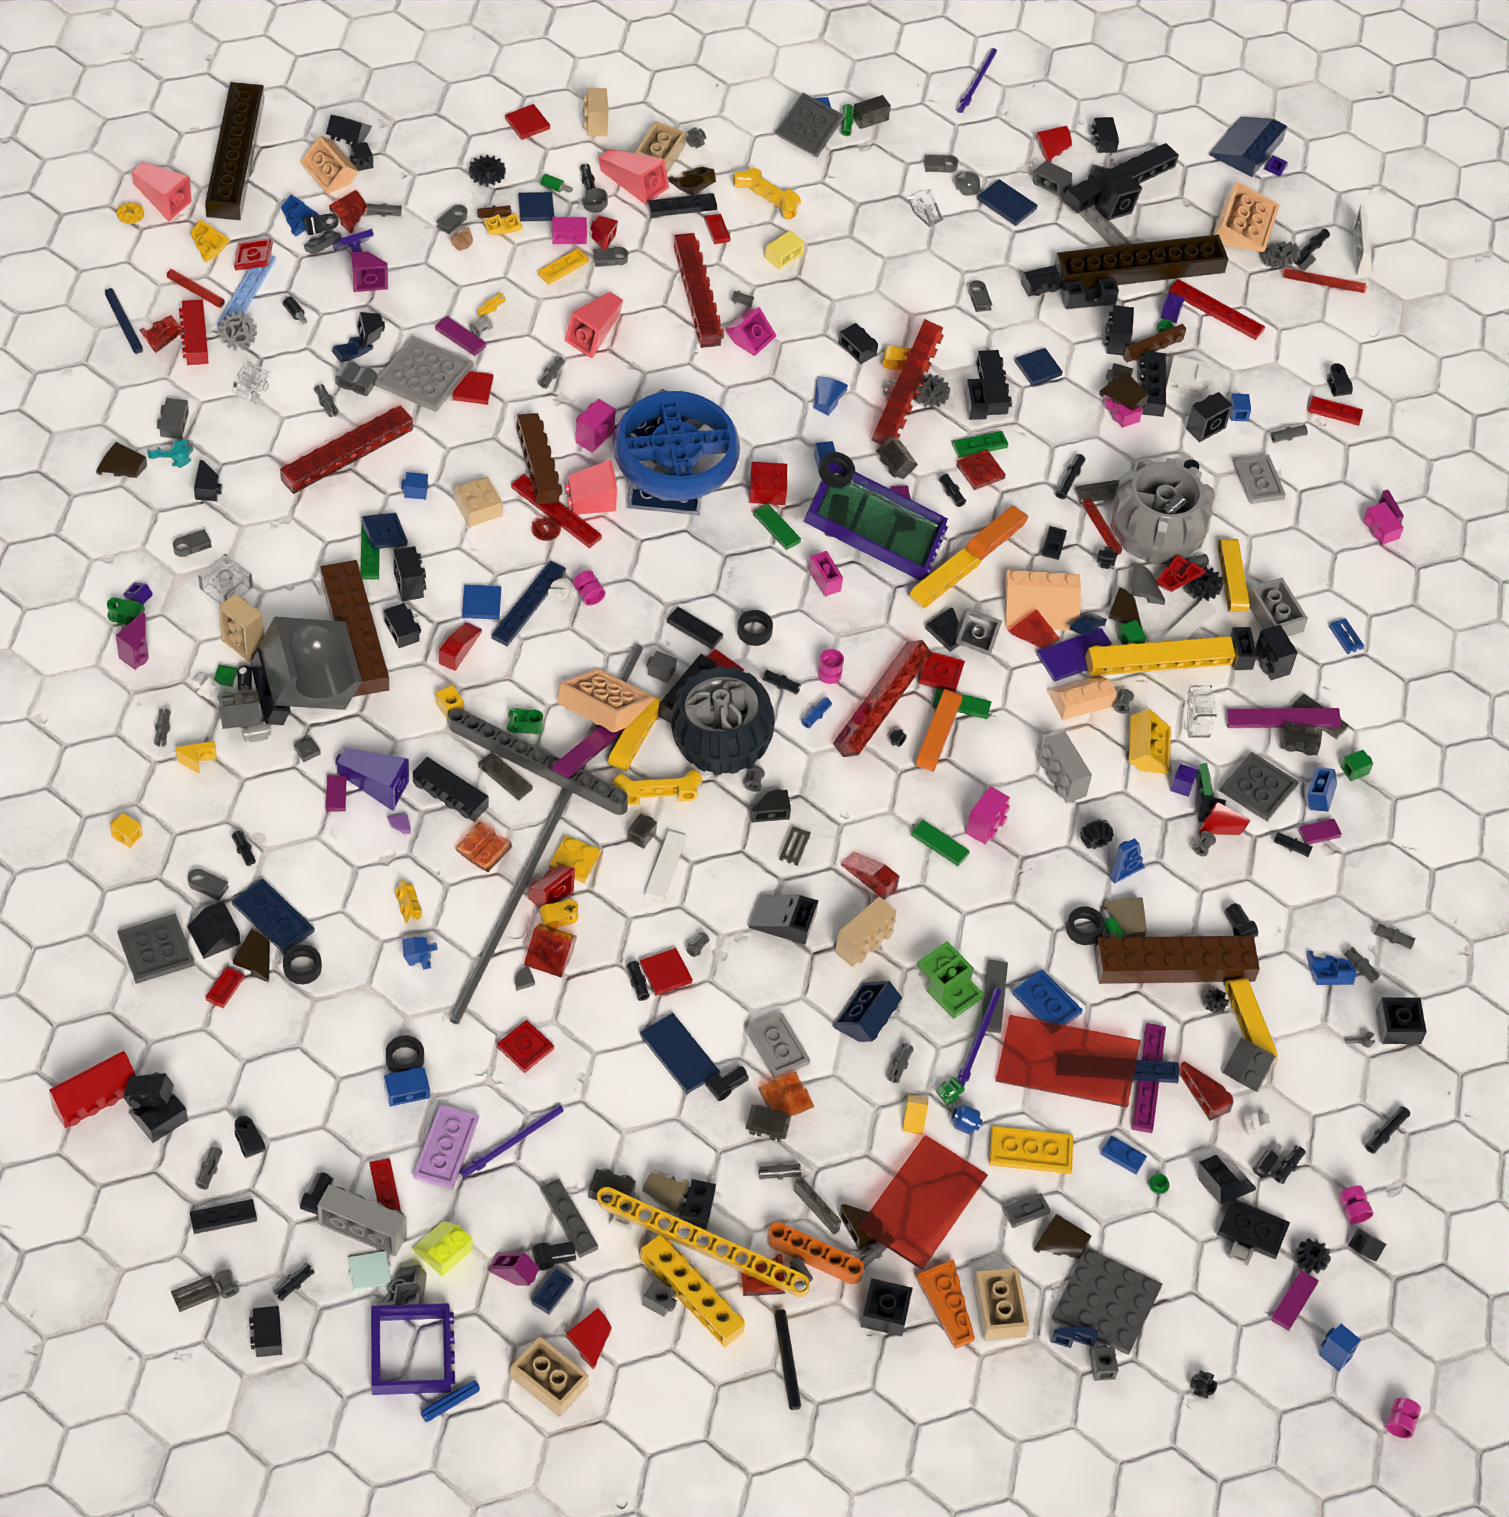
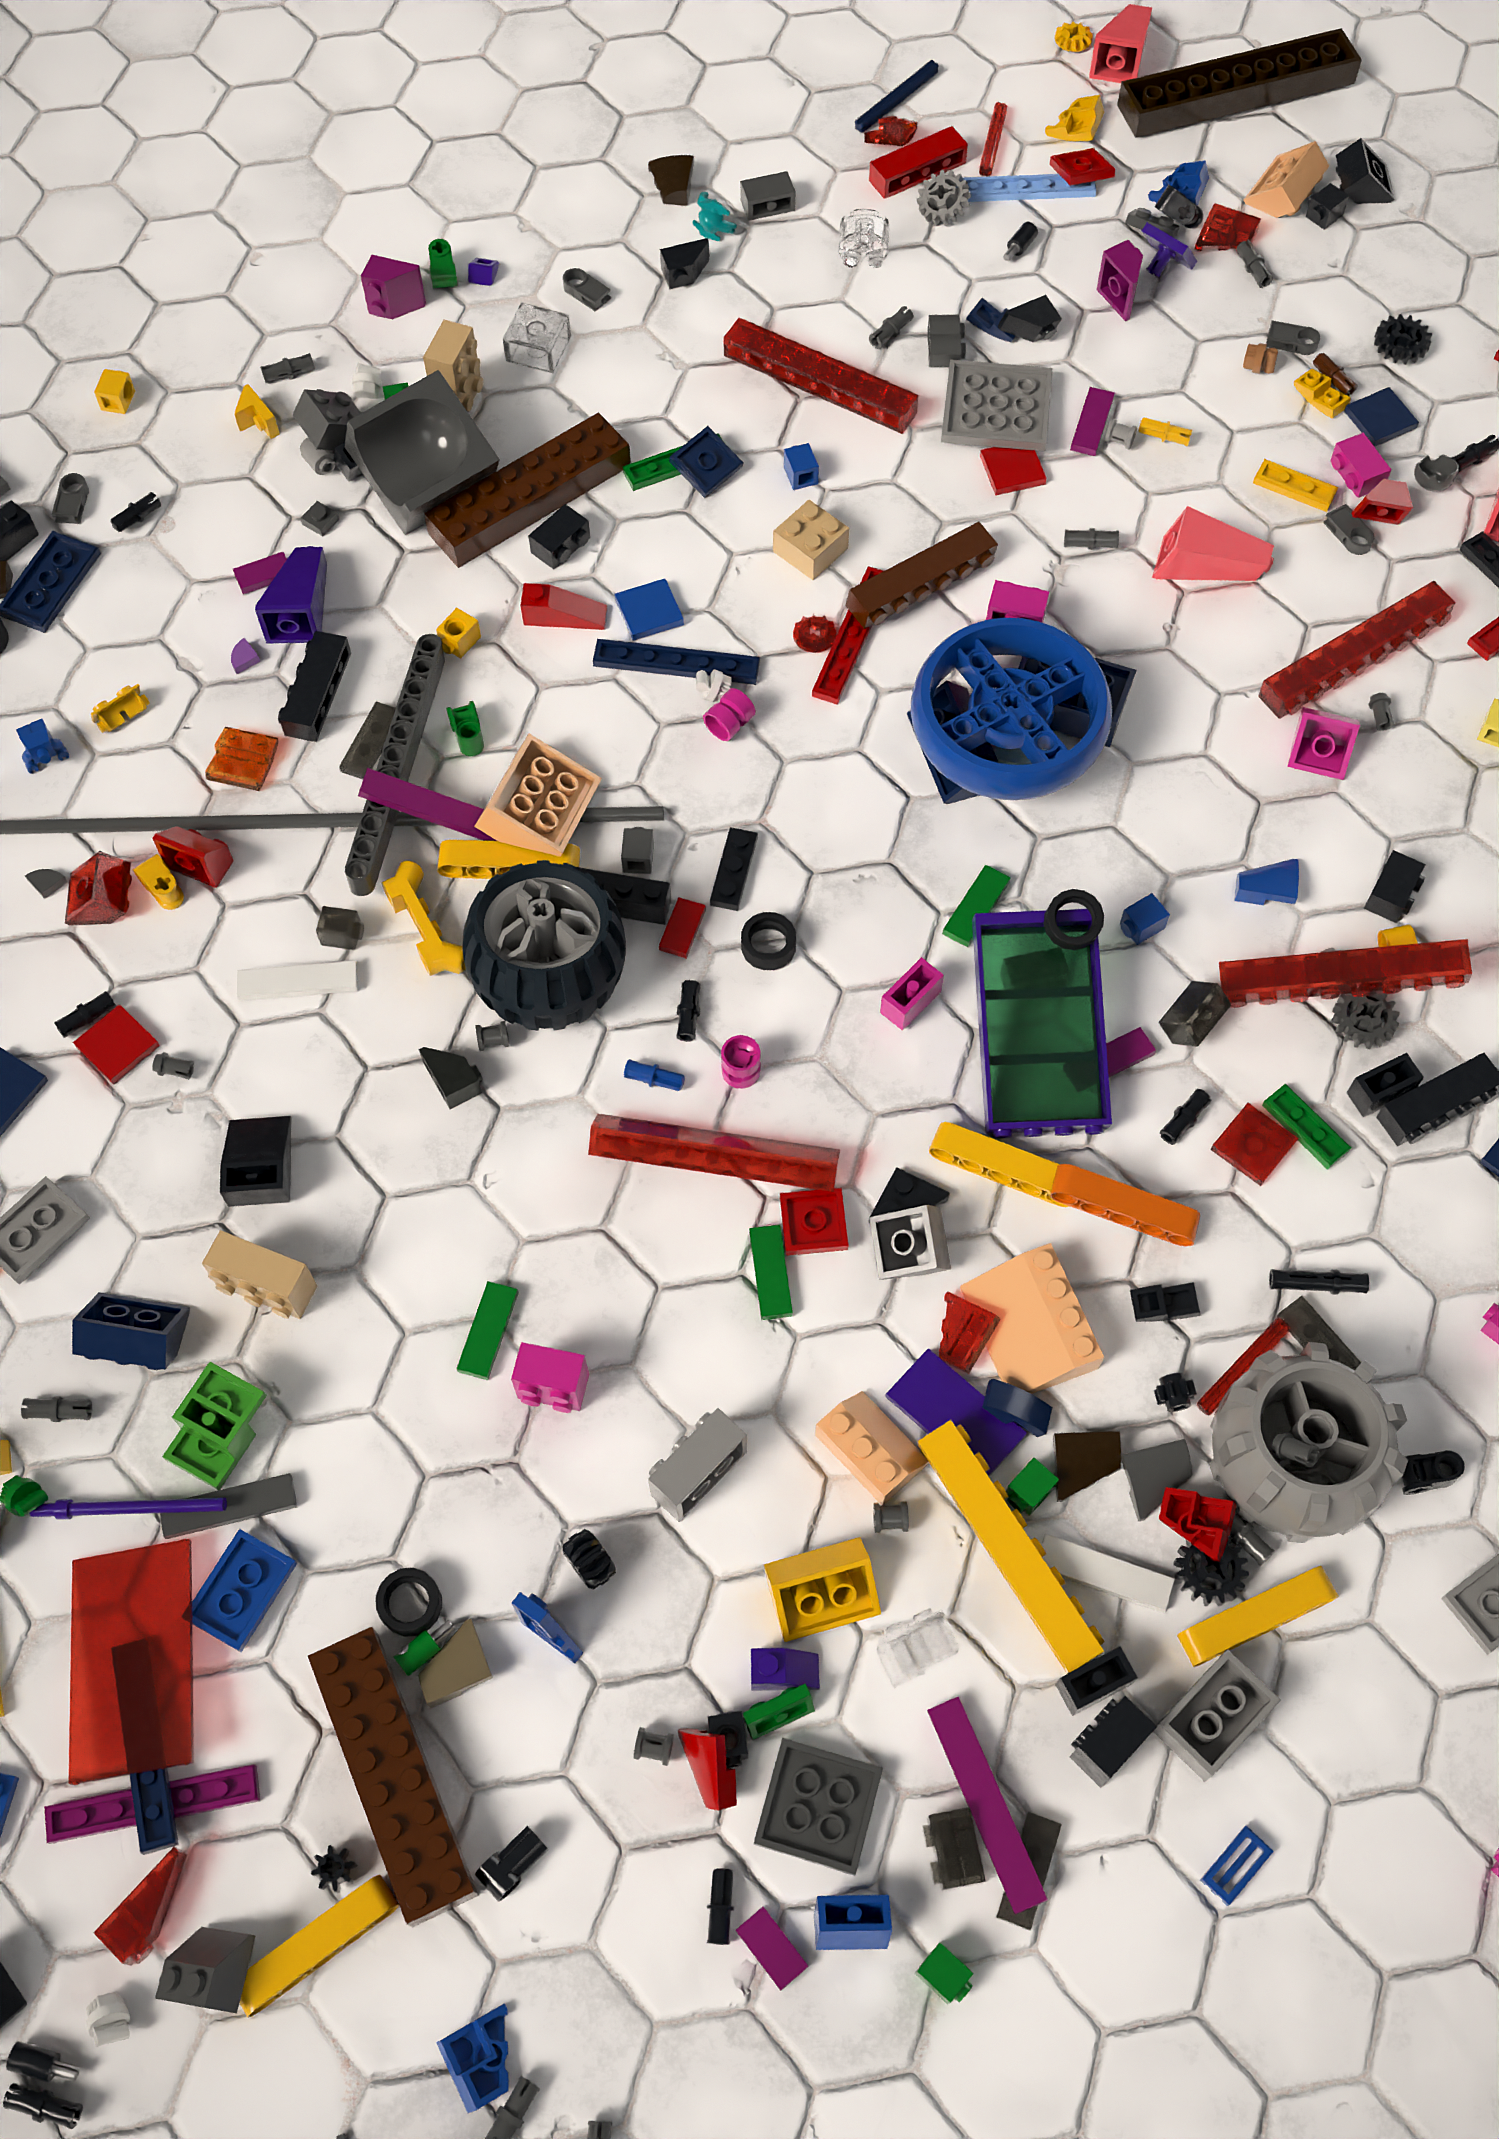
camera: 75 degrees right, 10 degrees up
(409, 574) = (638, 507): black brick -> none
(555, 183) = (1436, 419): green piece -> none
(576, 855) = (265, 869): yellow plate -> none
(592, 489) = (897, 655): coral slope -> none
(768, 483) = (1044, 862): red brick -> none
(790, 858) = (420, 1139): clear smoke tile -> none
(872, 873) = (384, 1251): clear red slope -> none
(898, 737) = (657, 1202): black plate -> none
(939, 730) = (693, 1253): orange beam -> none

